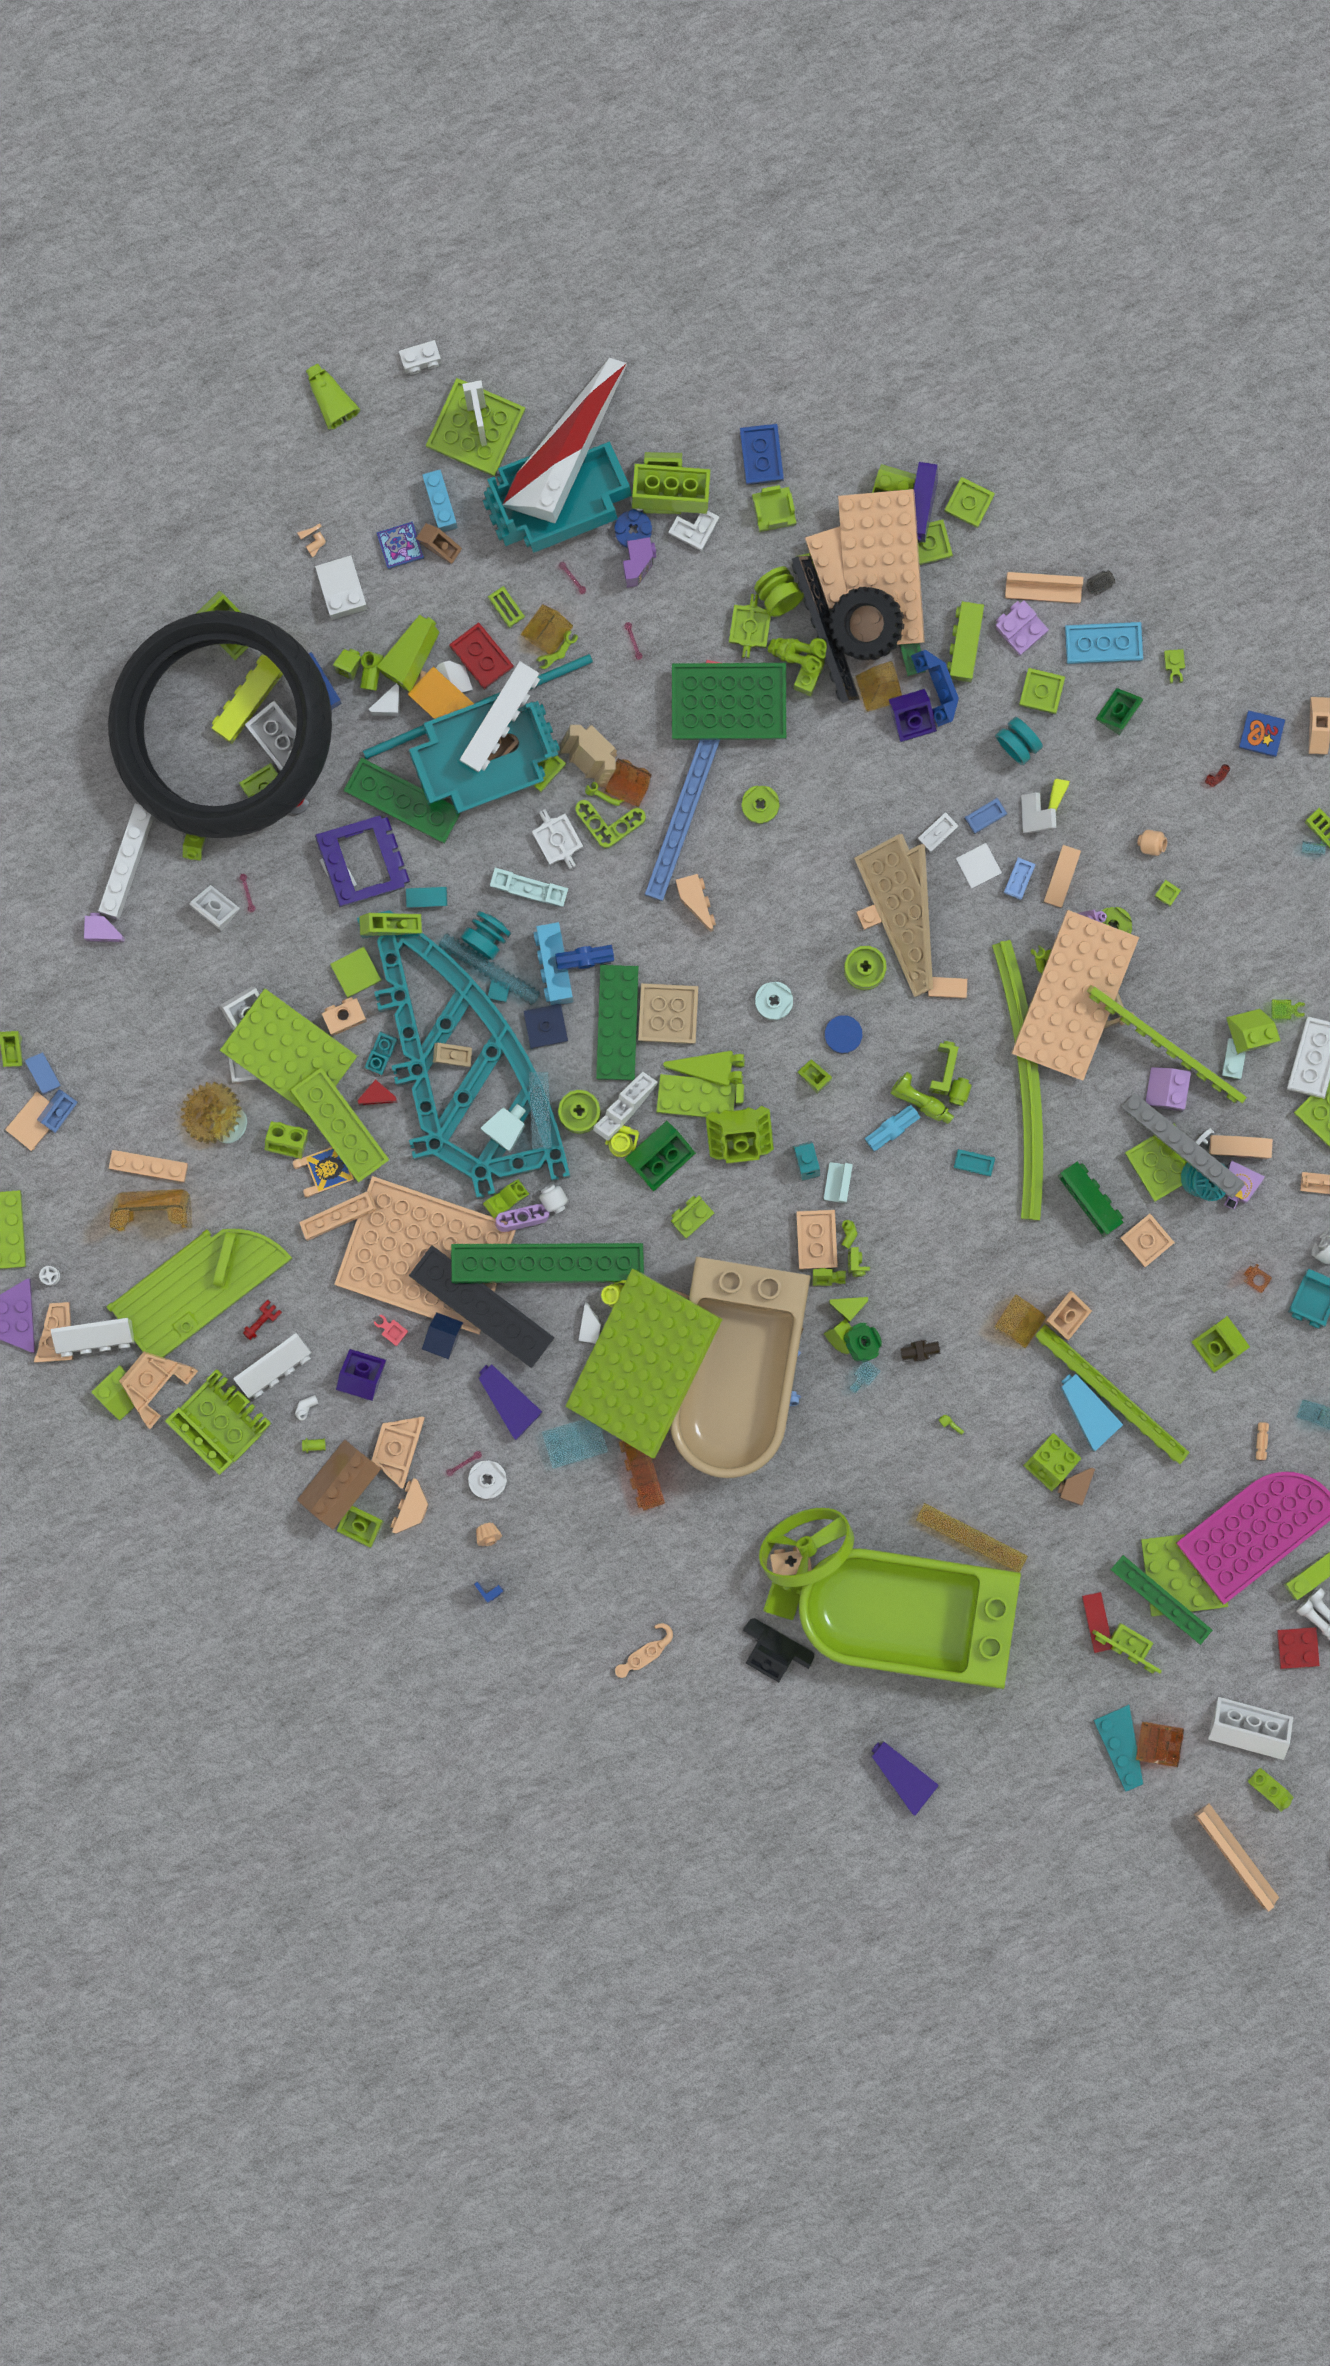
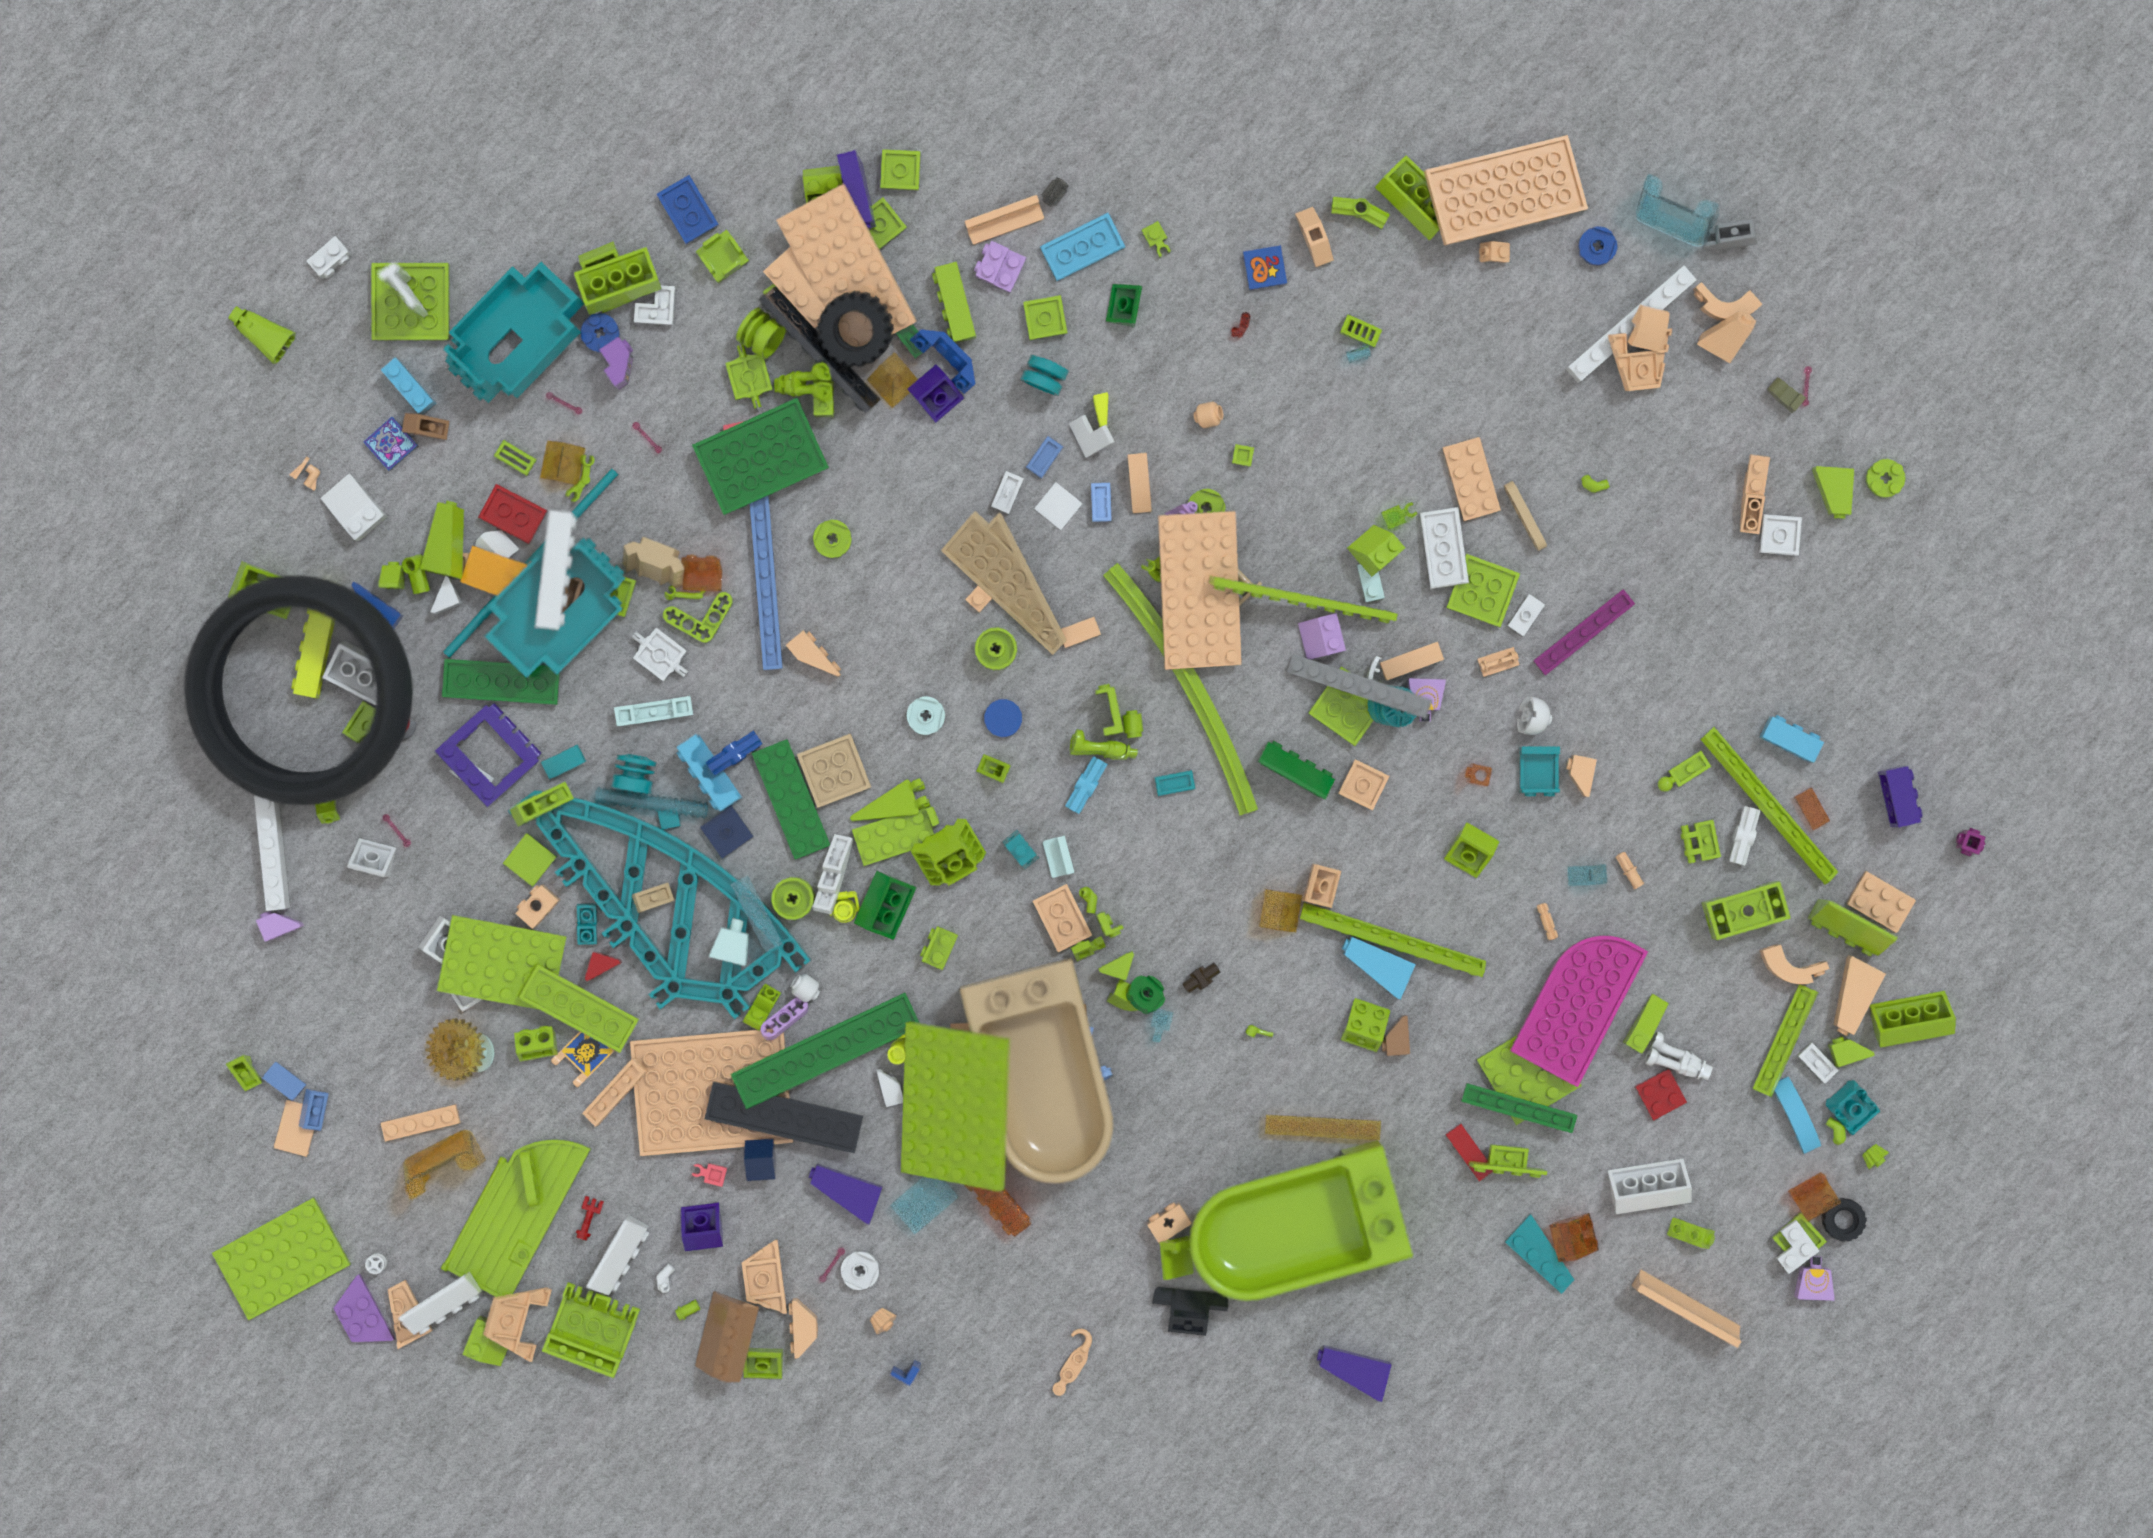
camera: 25 degrees left, 5 degrees up
(551, 470) = (498, 314): wedge -> none
(808, 1545) = (1179, 1204): lime piece -> none

